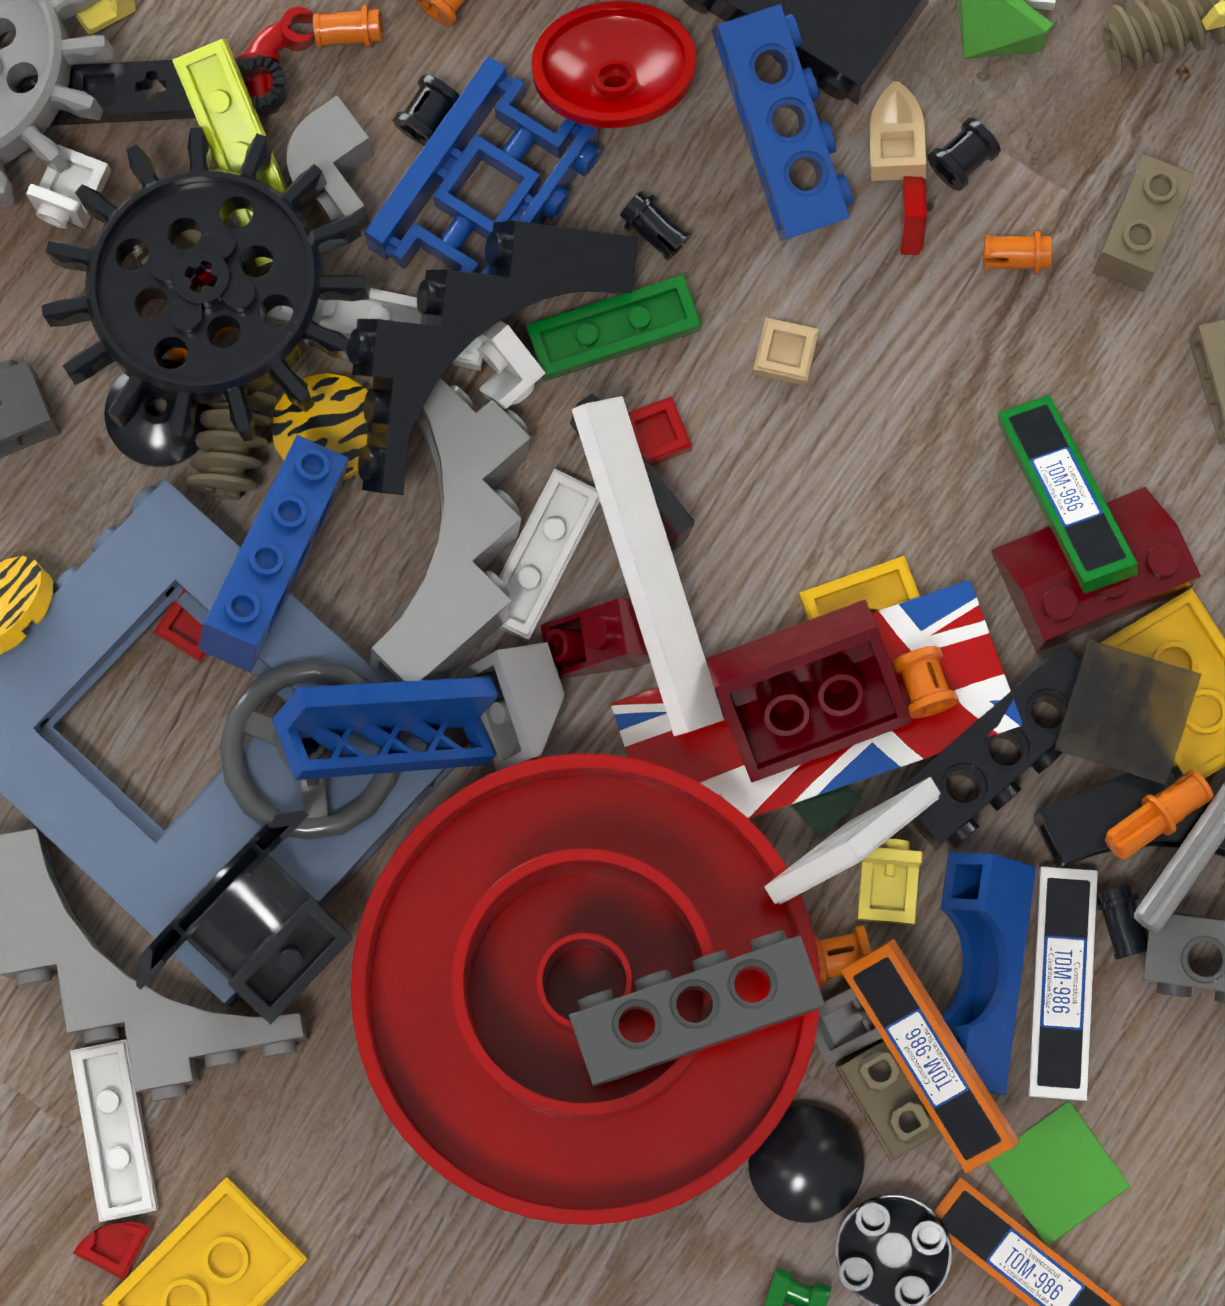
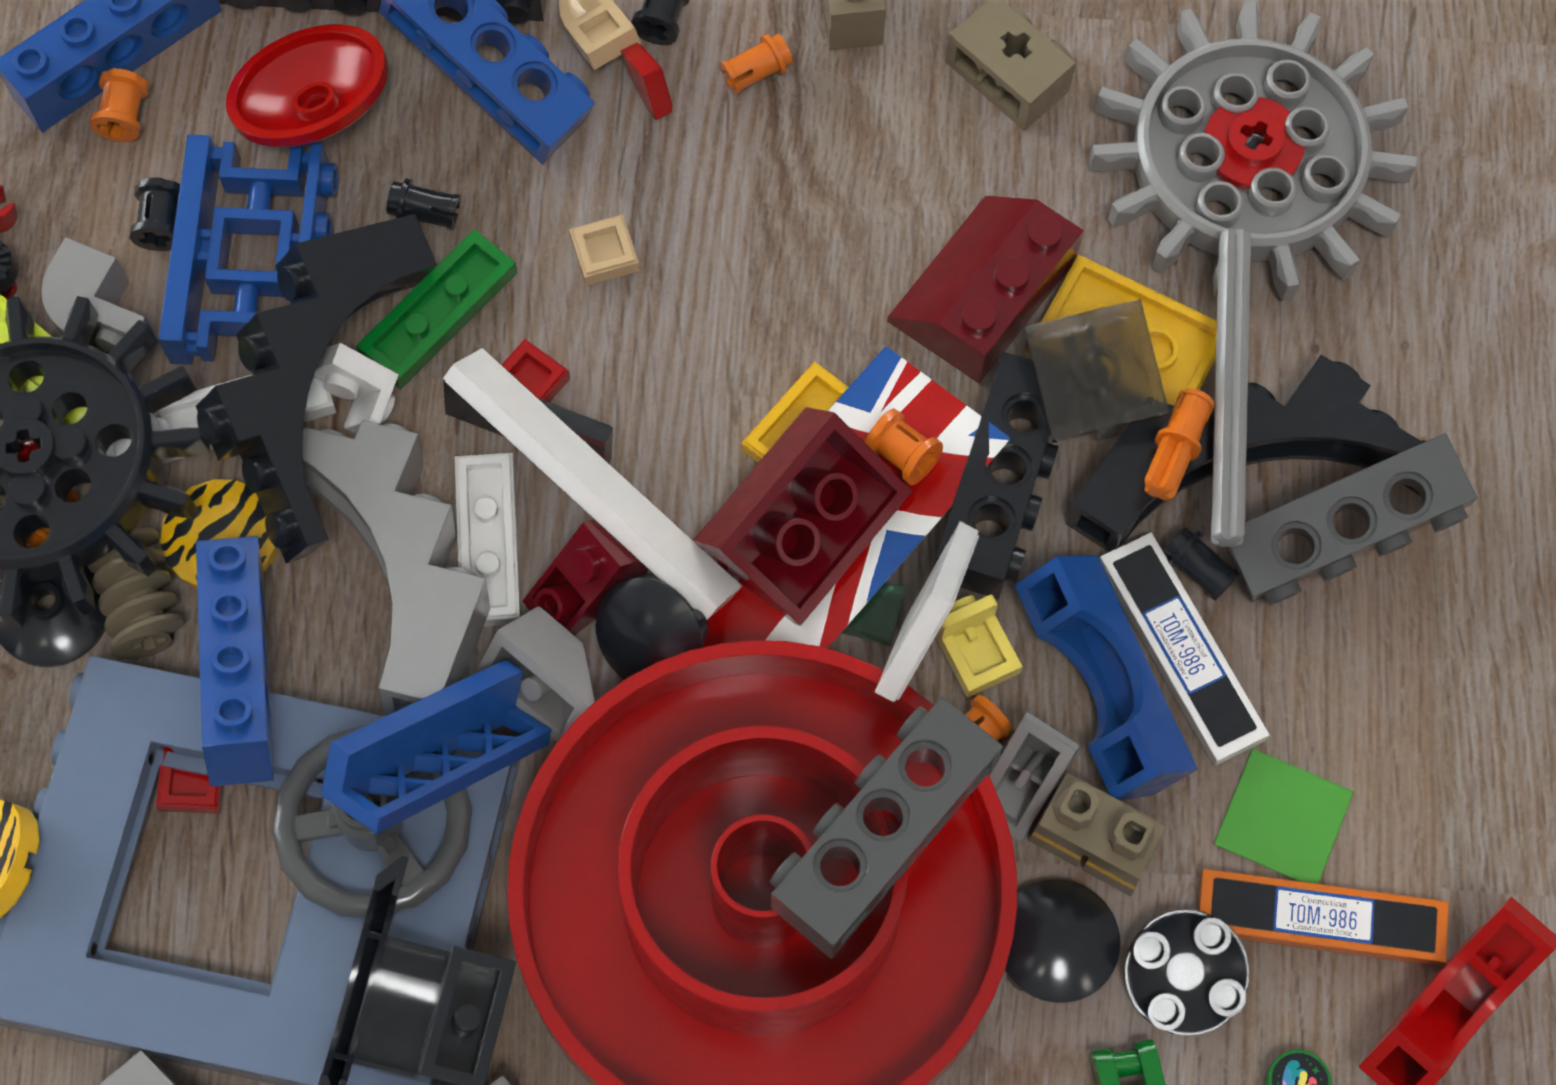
camera: 35 degrees left, 10 degrees down
(348, 27) = (43, 183): orange pin -> none
(624, 713) = (646, 623): none -> black dish
(930, 1056) = (1115, 762): tile -> none
(1067, 494) = (927, 227): tile -> none

